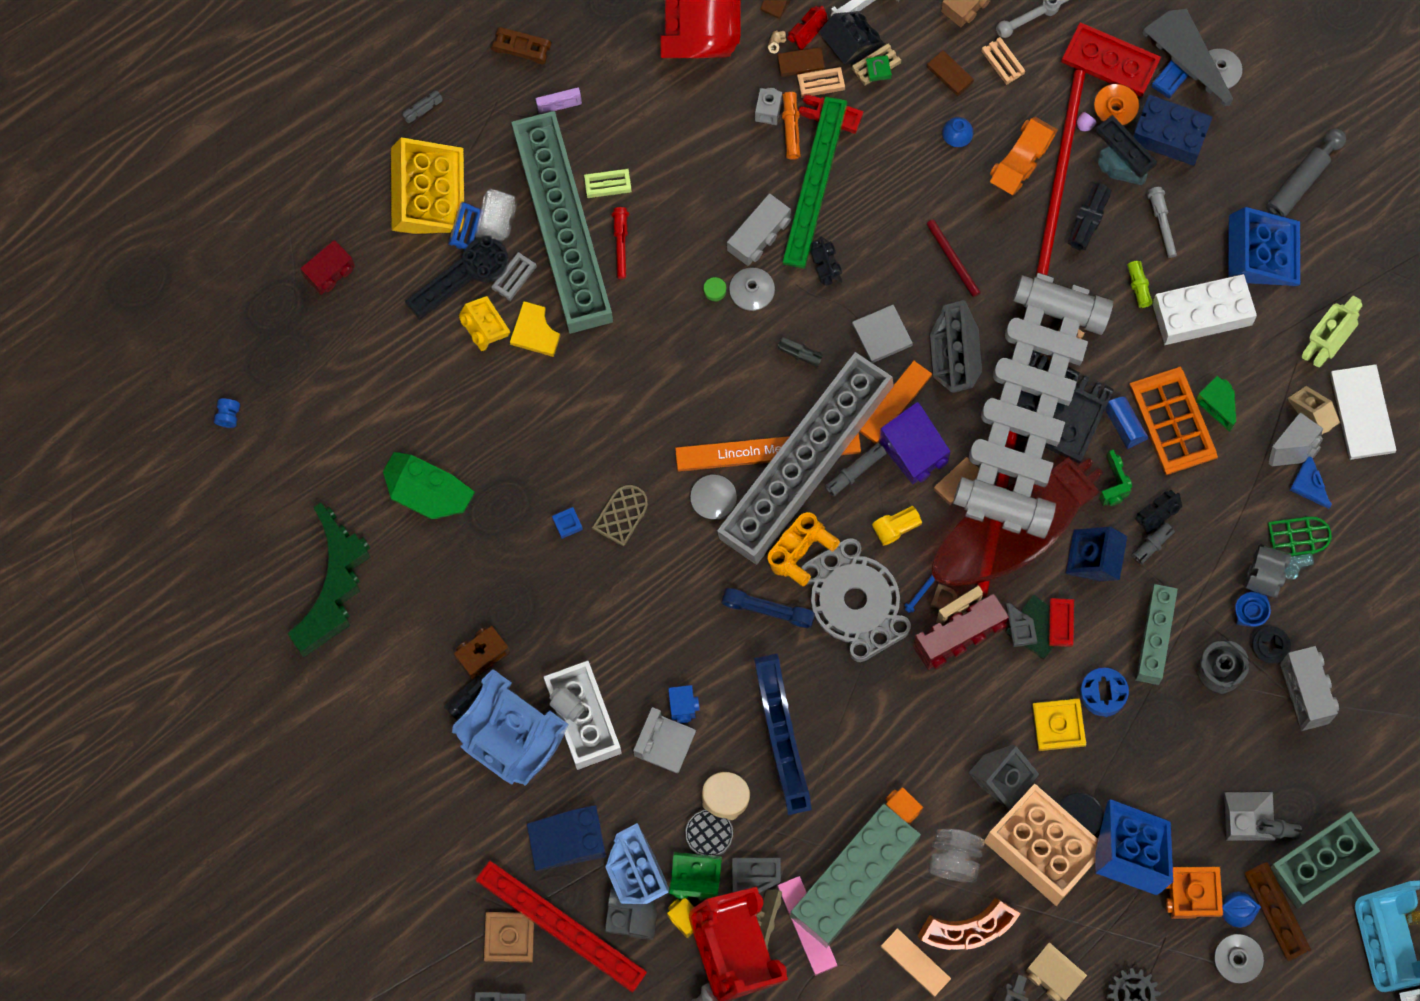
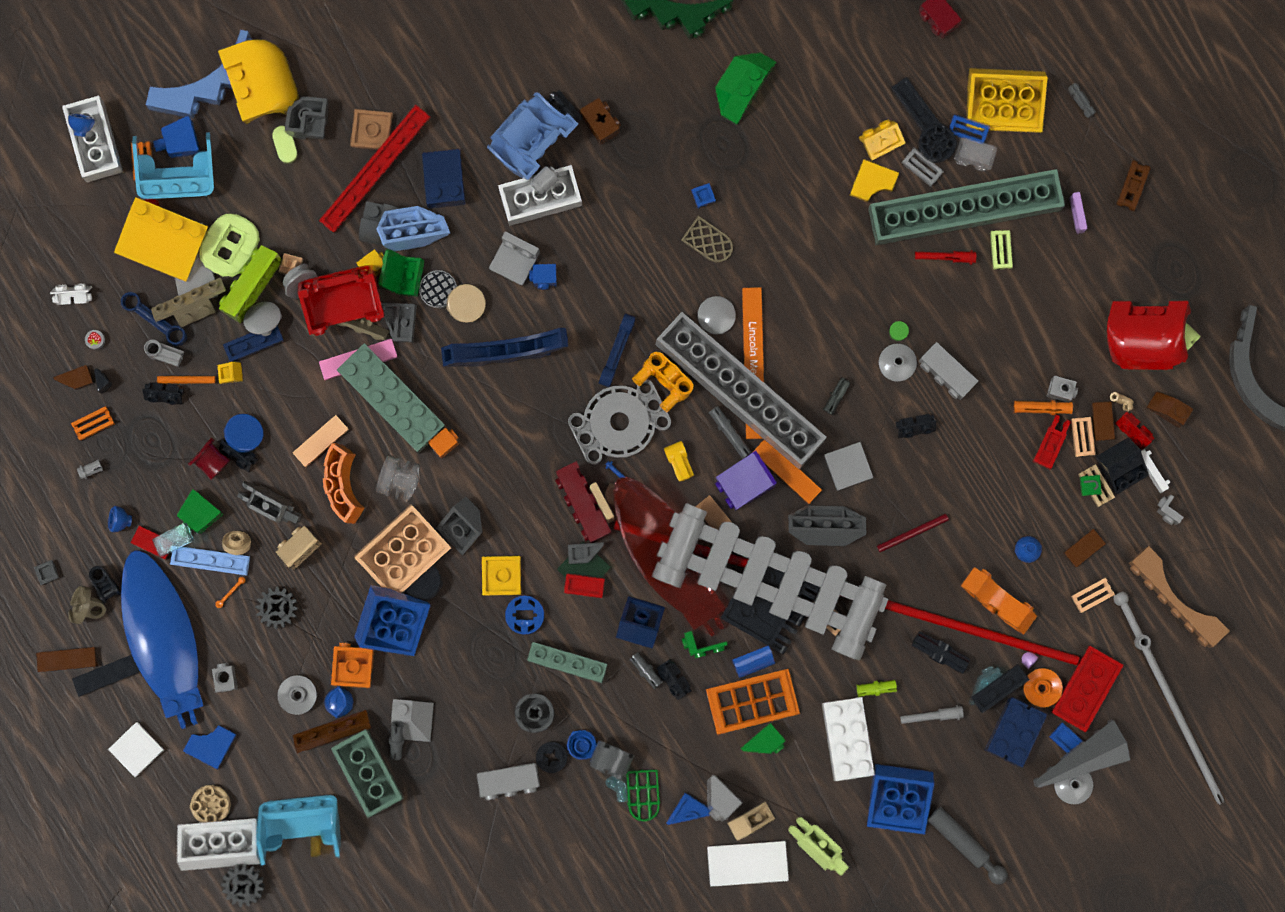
camera: 90 degrees right, 10 degrees up
(815, 182) = (988, 422): green tile -> none

